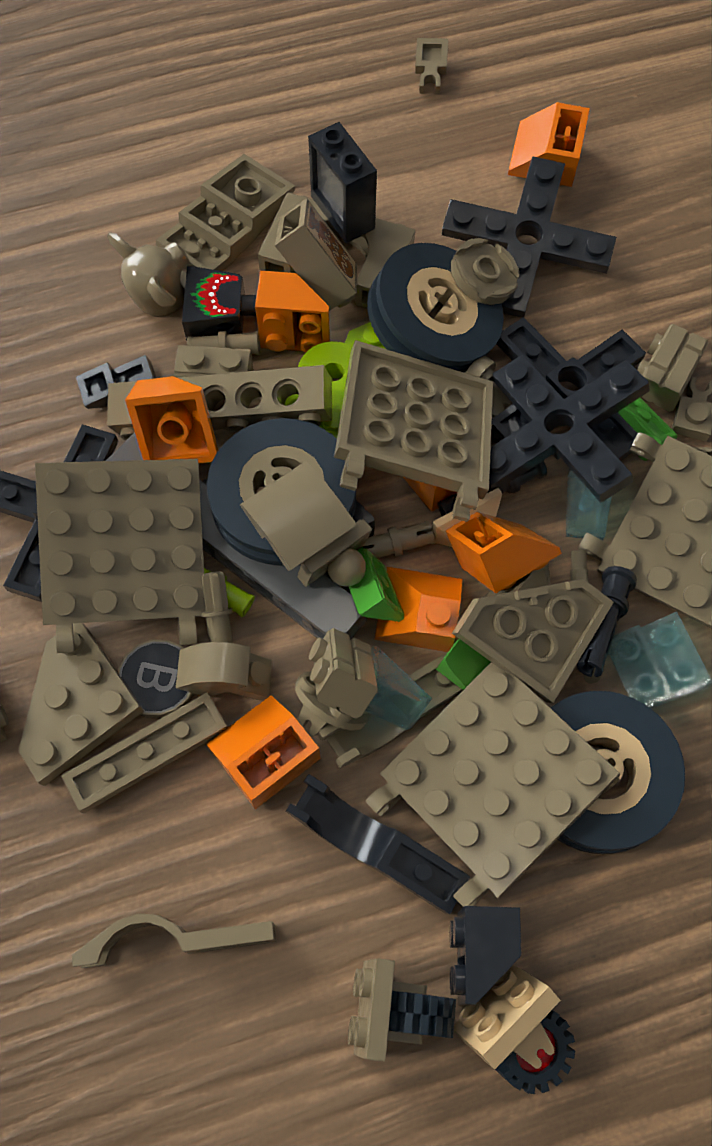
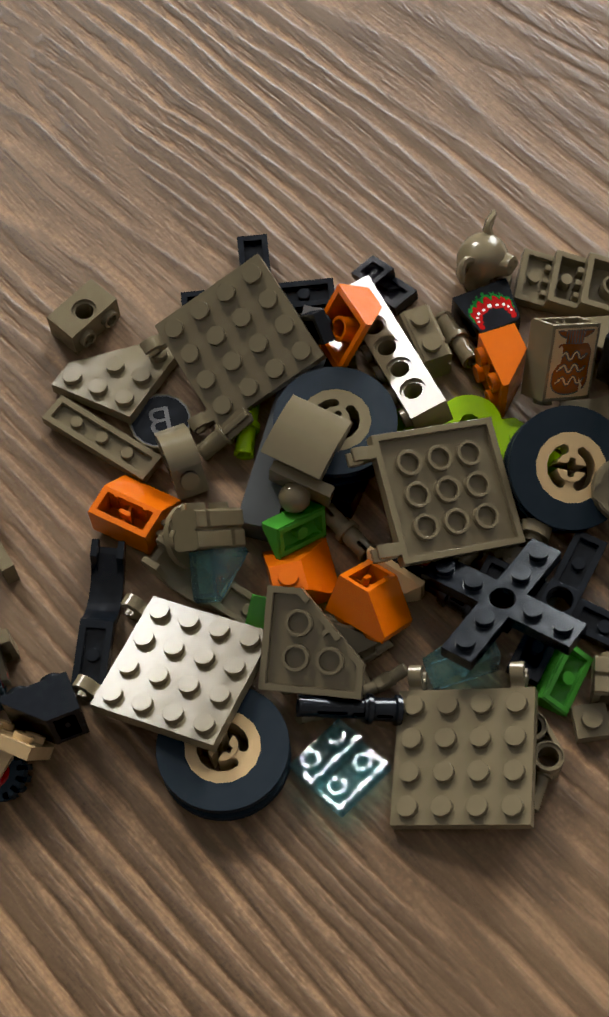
camera: 70 degrees right, 5 degrees down
(159, 446) = (319, 326): none -> black plate

